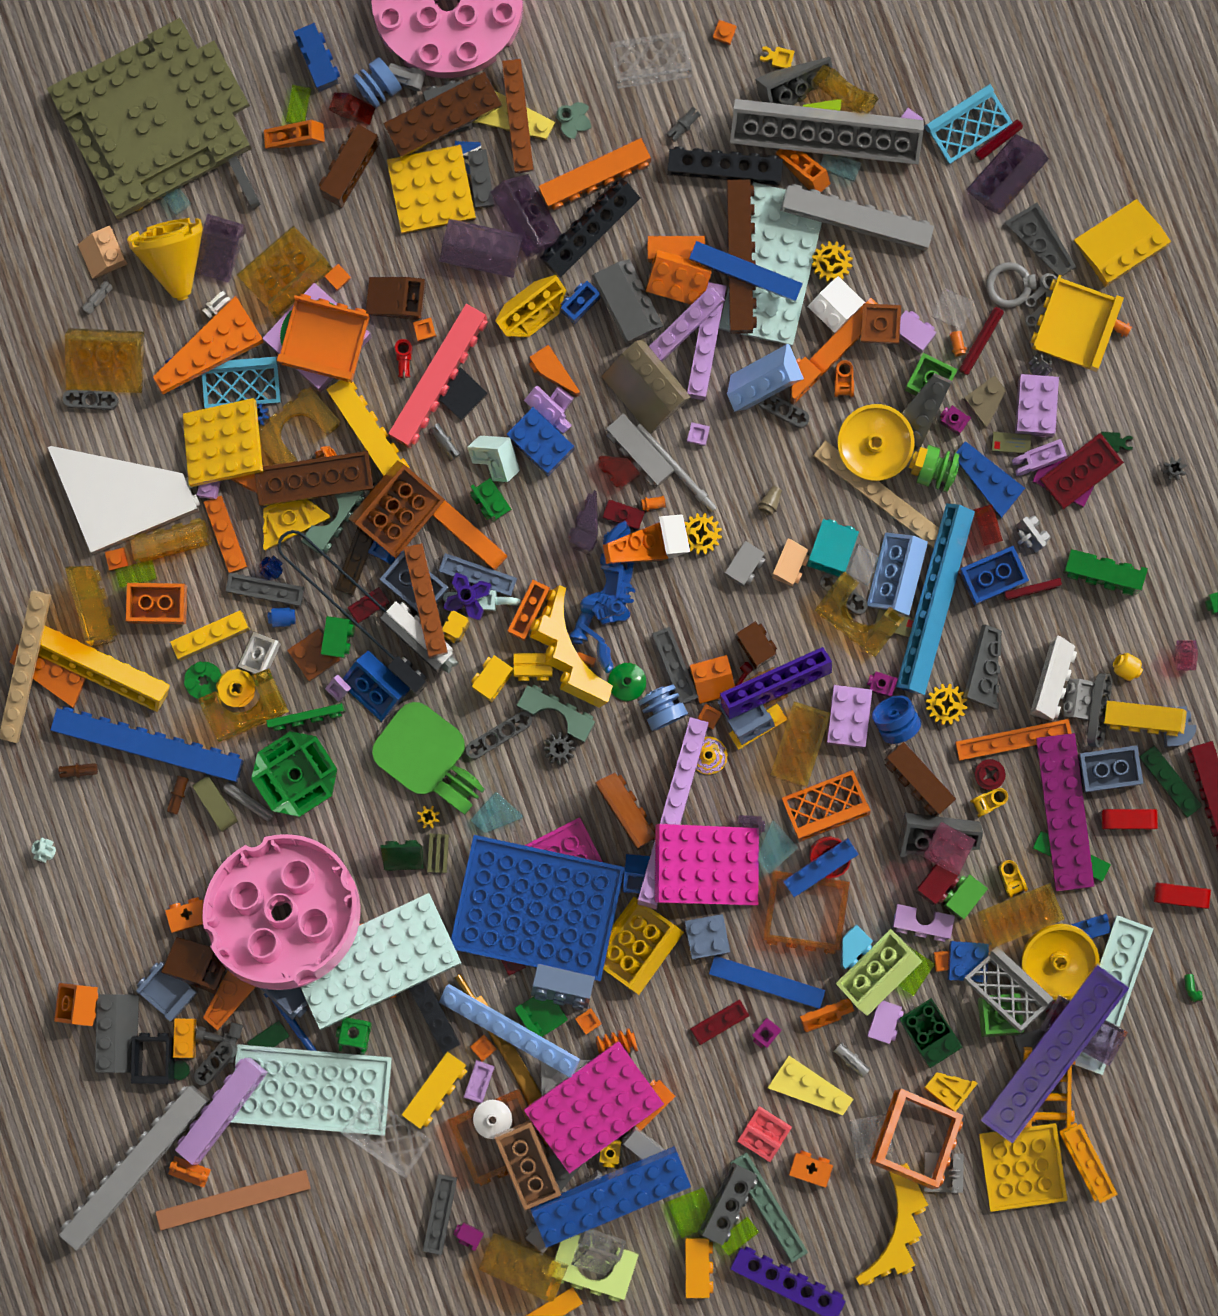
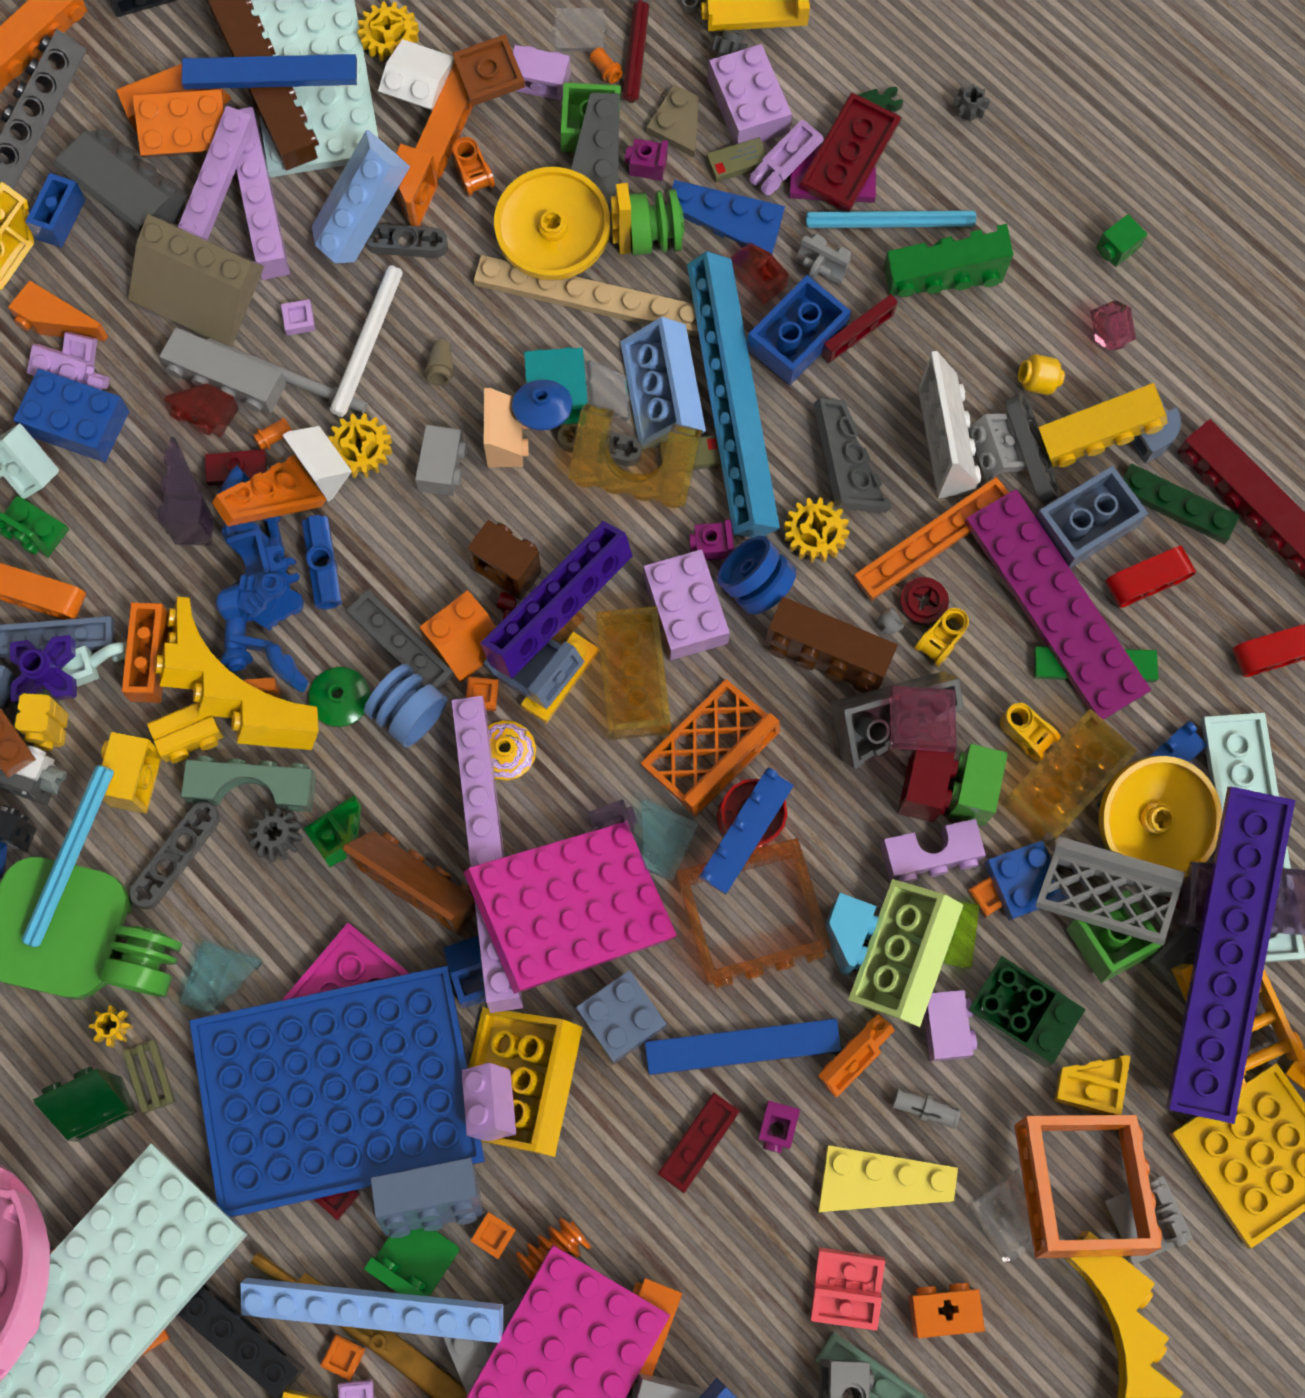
camera: 30 degrees left, 10 degrees down
(443, 715) = (67, 856): none -> medium azure axle
(594, 762) = (335, 830): none -> green wing
(616, 951) = (488, 1102): none -> lavender brick
(652, 585) = (324, 578): none -> blue piece
(733, 468) = (366, 341): none -> white axle
(818, 569) = (544, 413): none -> blue dish
(964, 778) = (891, 621): none -> light grey hinge
(1086, 524) = (883, 219): none -> medium azure axle

